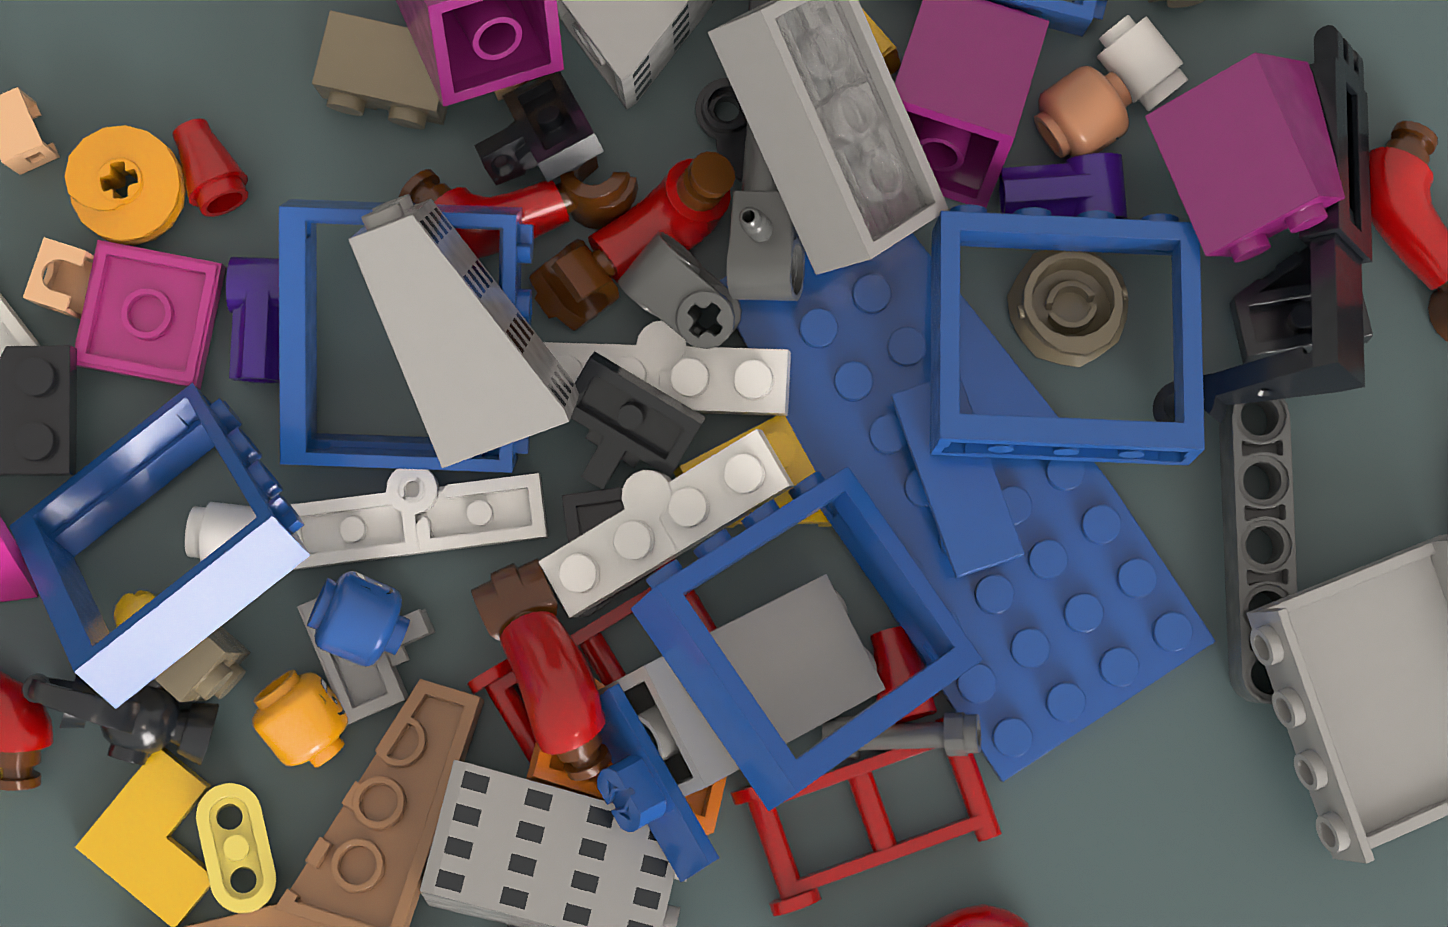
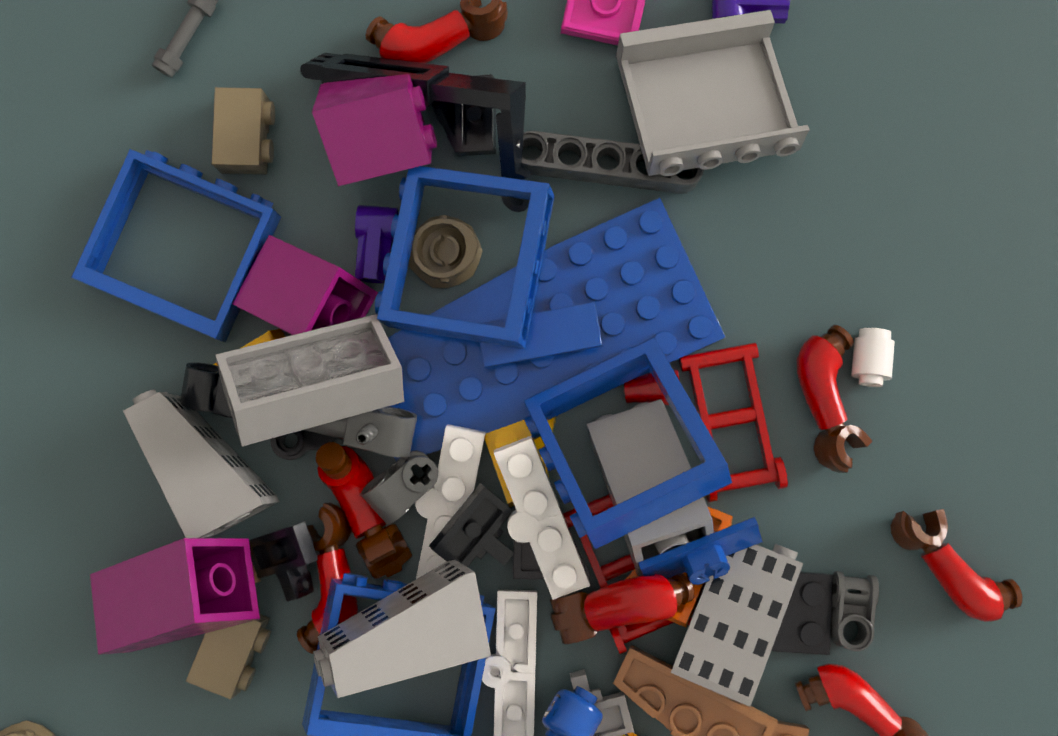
camera: 80 degrees left, 0 degrees up
(957, 734) = (694, 360): dark grey bar -> none
(1083, 112) = (328, 223): nougat head -> none
(1142, 61) = (303, 183): white brick -> none

